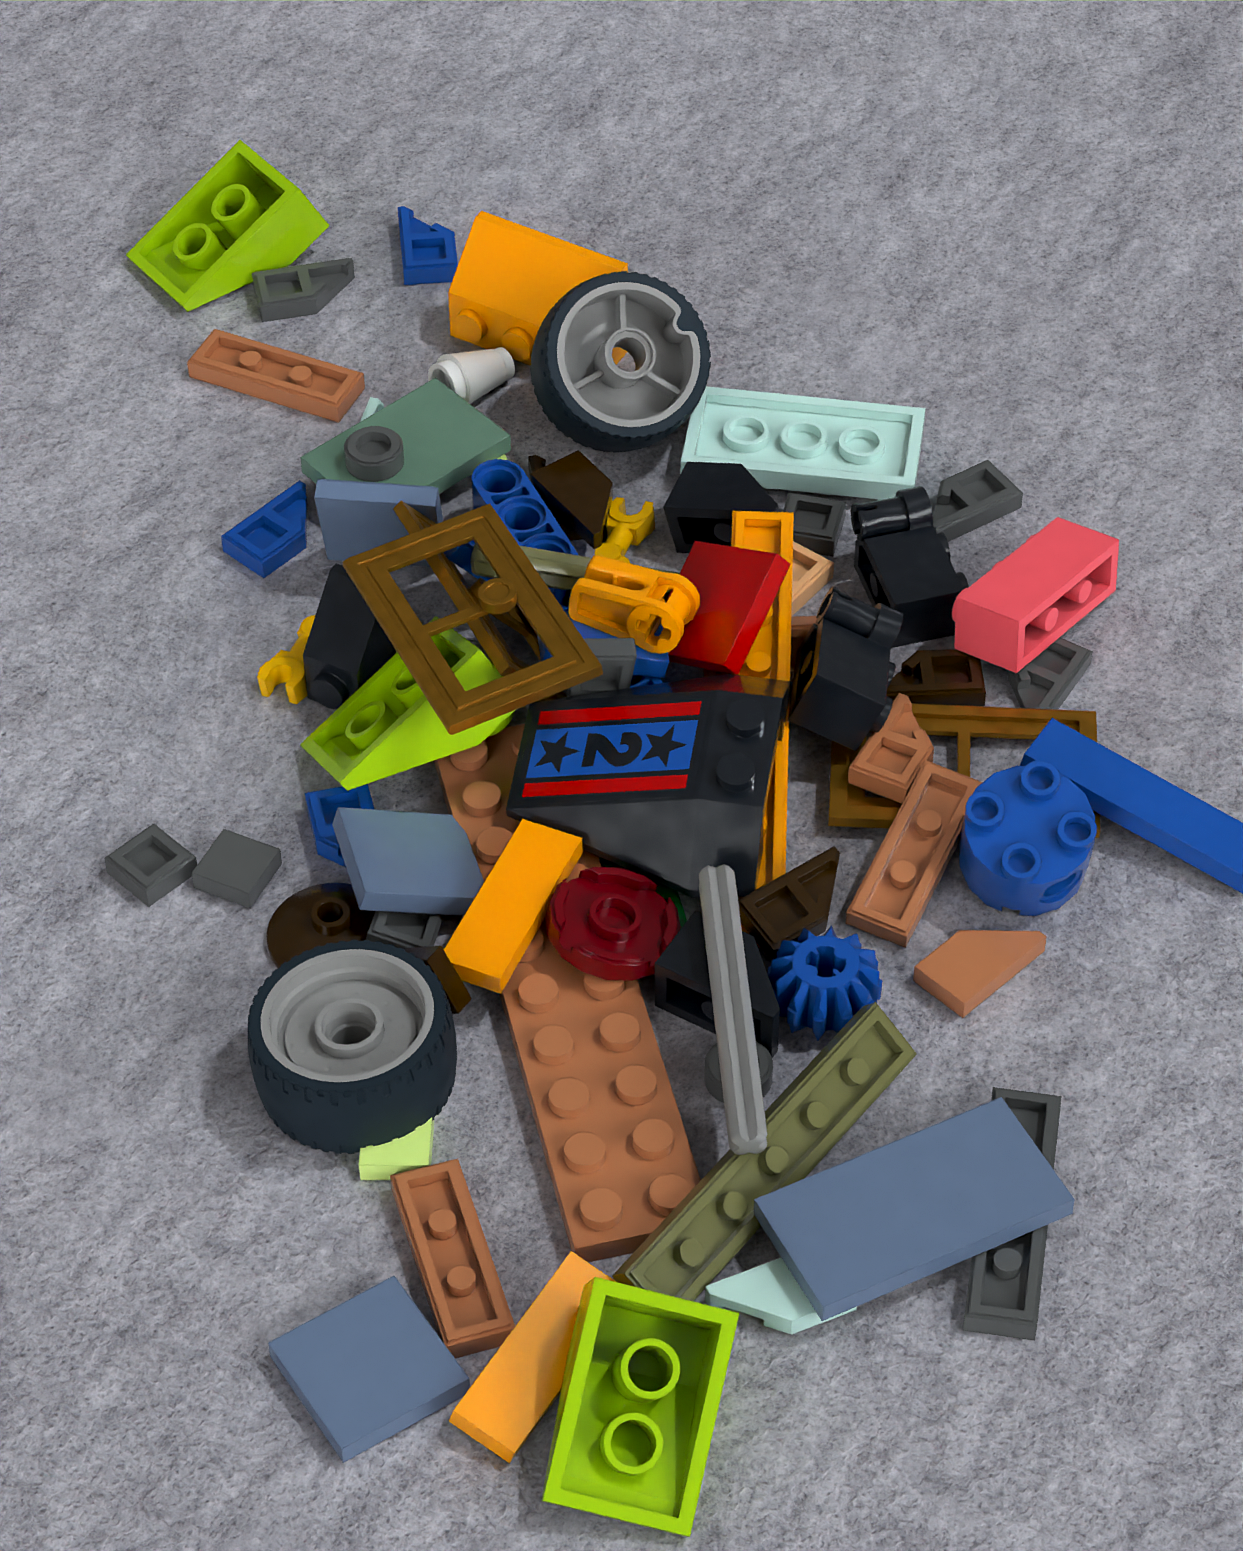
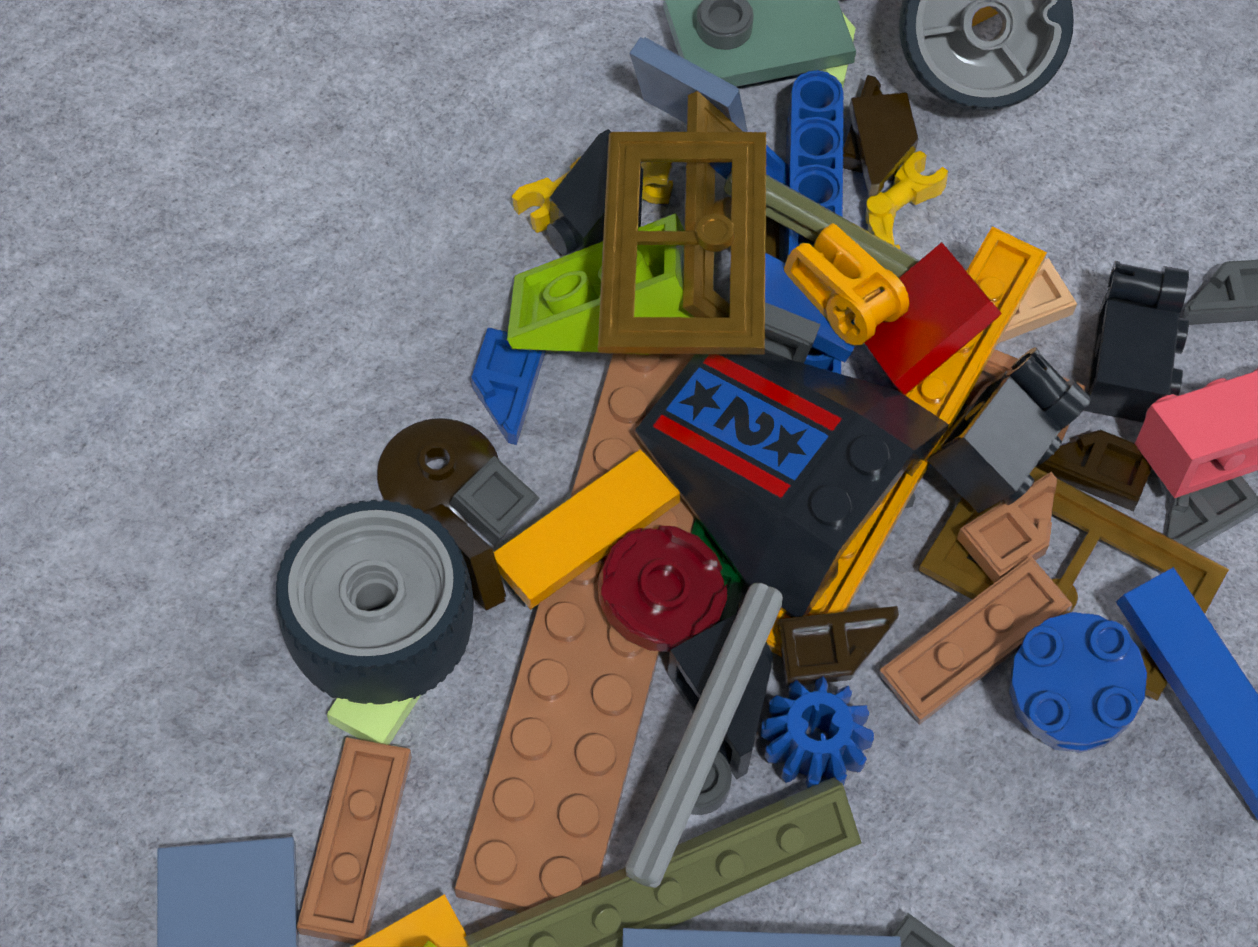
camera: 25 degrees right, 15 degrees up
(151, 865) = (329, 336): dark grey tile -> none
(236, 868) = (394, 373): dark grey tile -> none
(271, 533) = (603, 56): blue tile -> none
(407, 861) = (528, 440): sand blue tile -> none
(704, 502) = (999, 195): black slope -> none
(808, 441) = (1121, 169): light aqua plate -> none
(816, 522) = (1082, 252): dark grey tile -> none
(976, 965) = (968, 777): nougat tile -> none

